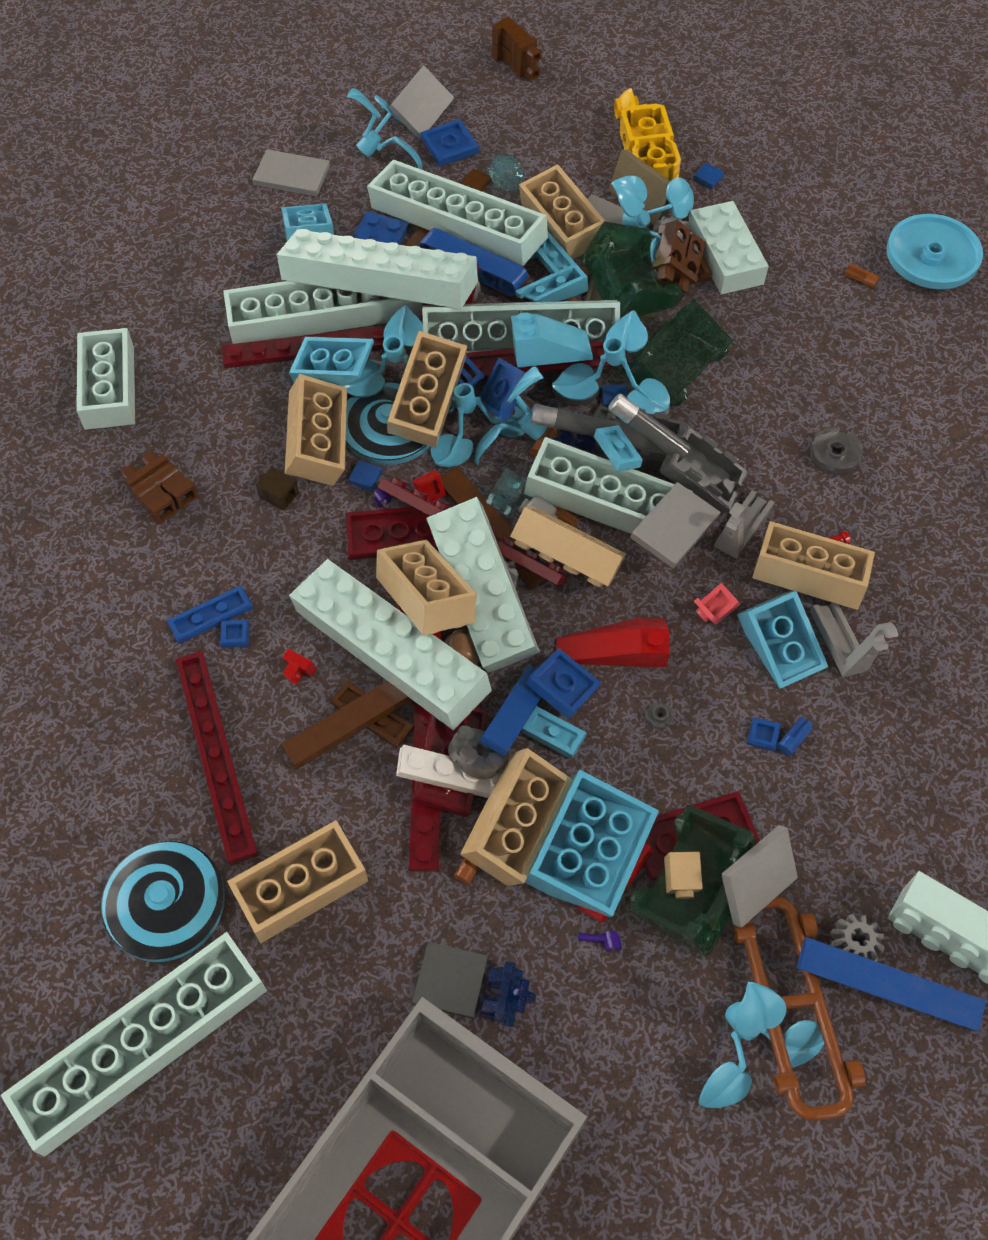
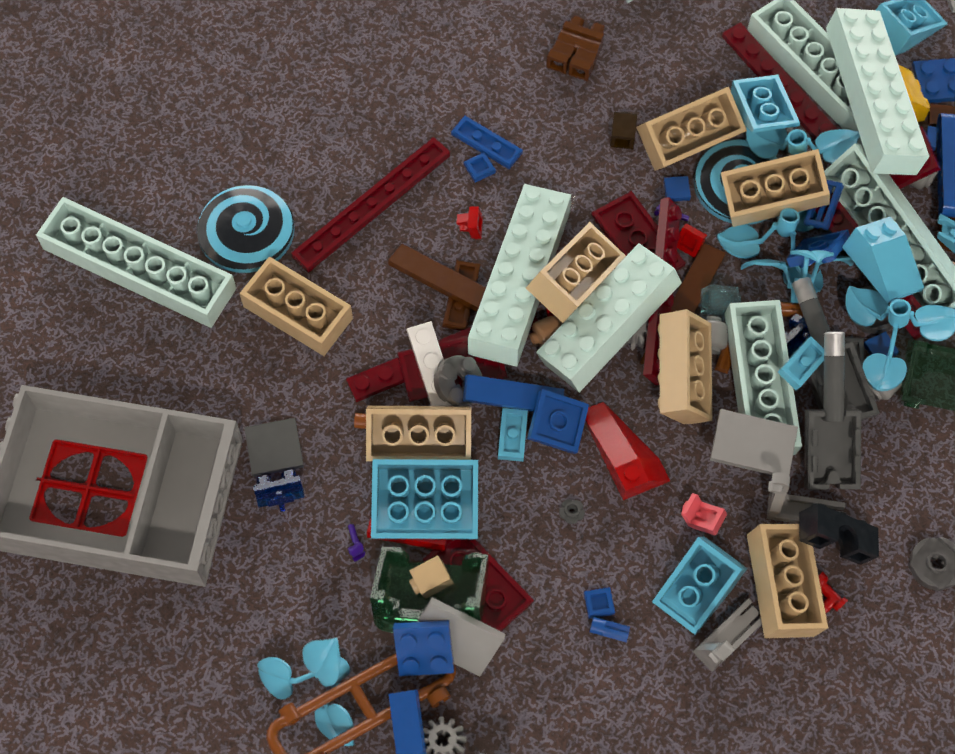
camera: 65 degrees right, 5 degrees up
(761, 911) = (423, 648): none -> blue plate
(787, 502) = (823, 526): none -> black arch

